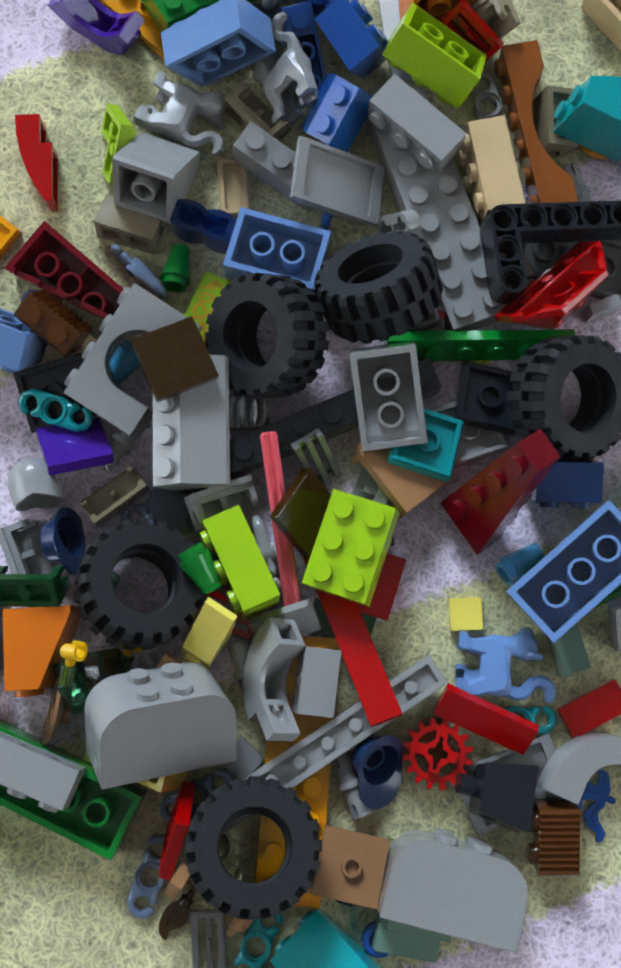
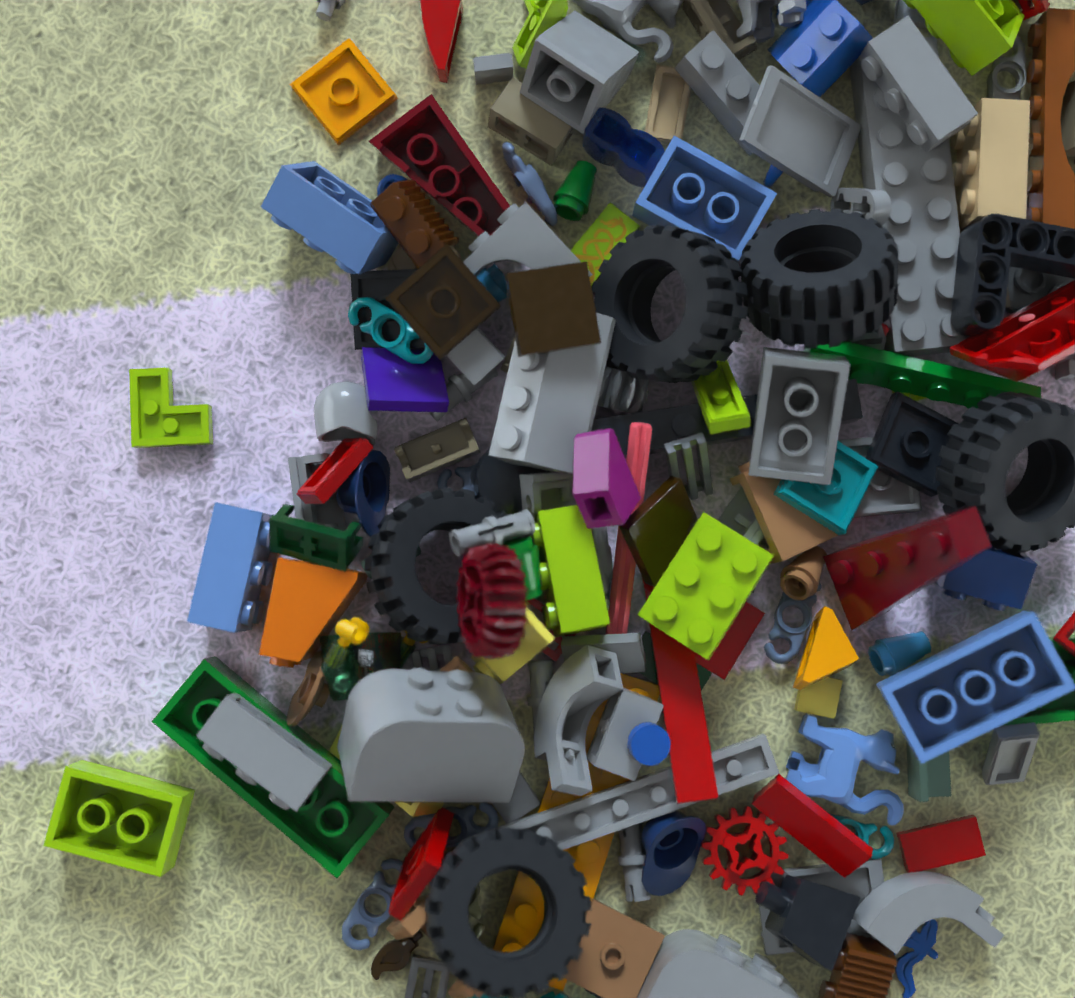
camera: 15 degrees right, 5 degrees up
(34, 530) = (334, 470): none -> red tile
(88, 375) = (443, 302): none -> dark brown tile
(90, 191) = (493, 68): none -> light grey tile
(168, 546) = (492, 531): none -> light grey pin
(179, 598) = (491, 601): none -> dark red gear
(246, 482) = (602, 480): none -> magenta slope
(326, 398) = (721, 400): none -> lime tile
(336, 684) = (649, 743): none -> blue tile
(427, 521) = (803, 574): none -> medium nougat cone
(433, 571) = (794, 636): none -> sand blue piece
(462, 577) = (825, 650): none -> light orange slope

